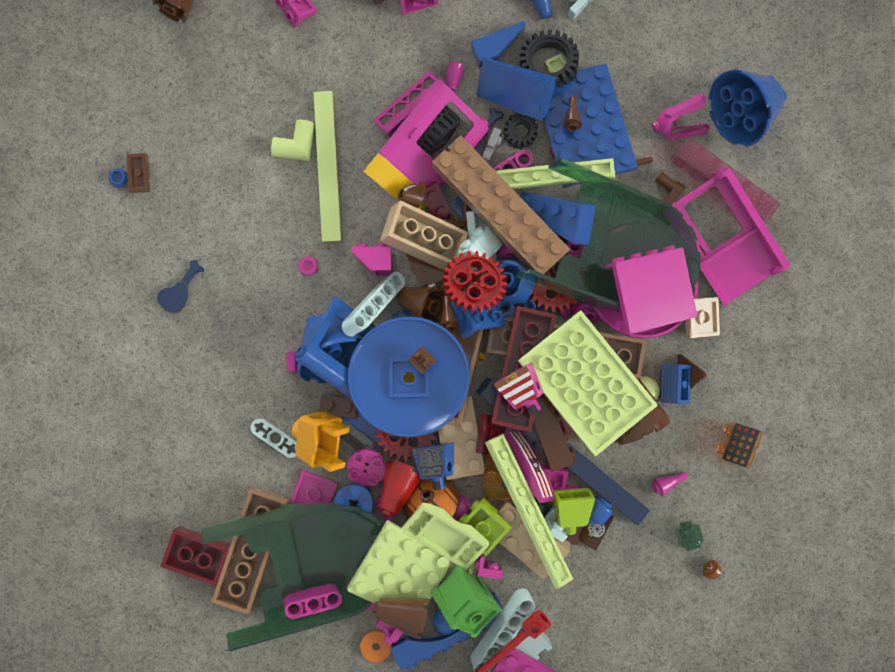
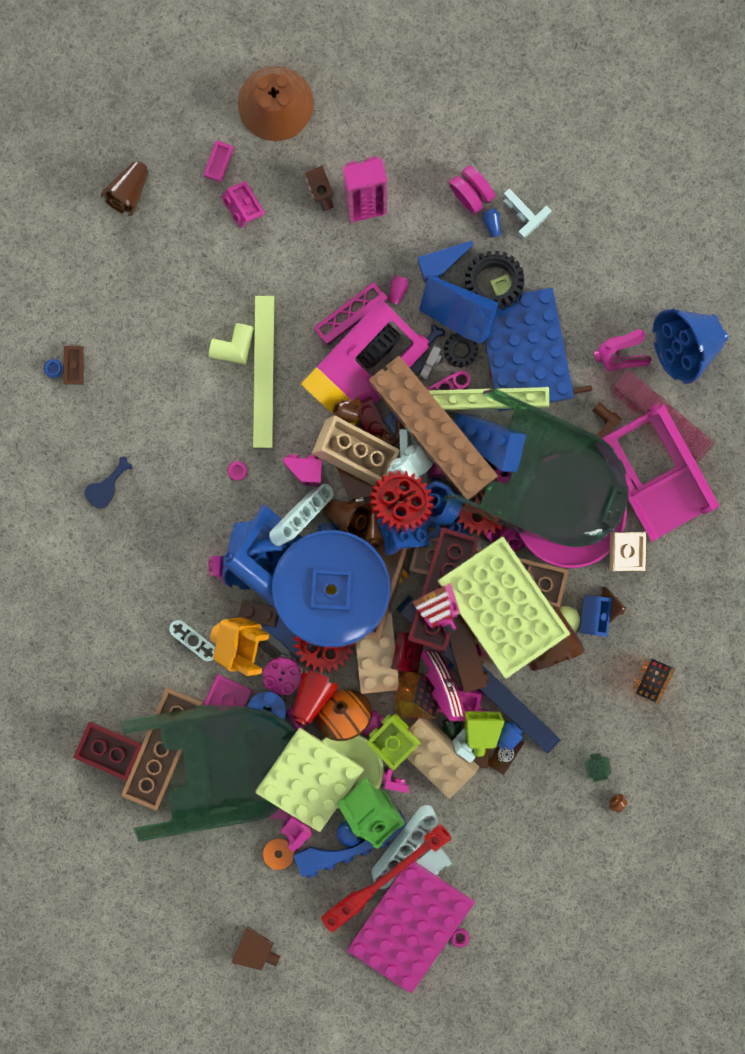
camera: 10 degrees right, 0 degrees up
(303, 597) = (228, 806): dark pink beam -> none
(403, 614) = (308, 819): reddish brown cone -> none
(421, 360) = (345, 574): reddish brown tile -> none
(435, 462) = (350, 675): torso -> none
(445, 536) = (355, 746): yellowish green slope -> none
(529, 511) = (438, 728): yellowish green tile -> none
(572, 119) = (512, 344): reddish brown cone -> none
(653, 289) = (577, 521): dark pink panel -> none
(665, 484) = (577, 715): dark pink cone -> none

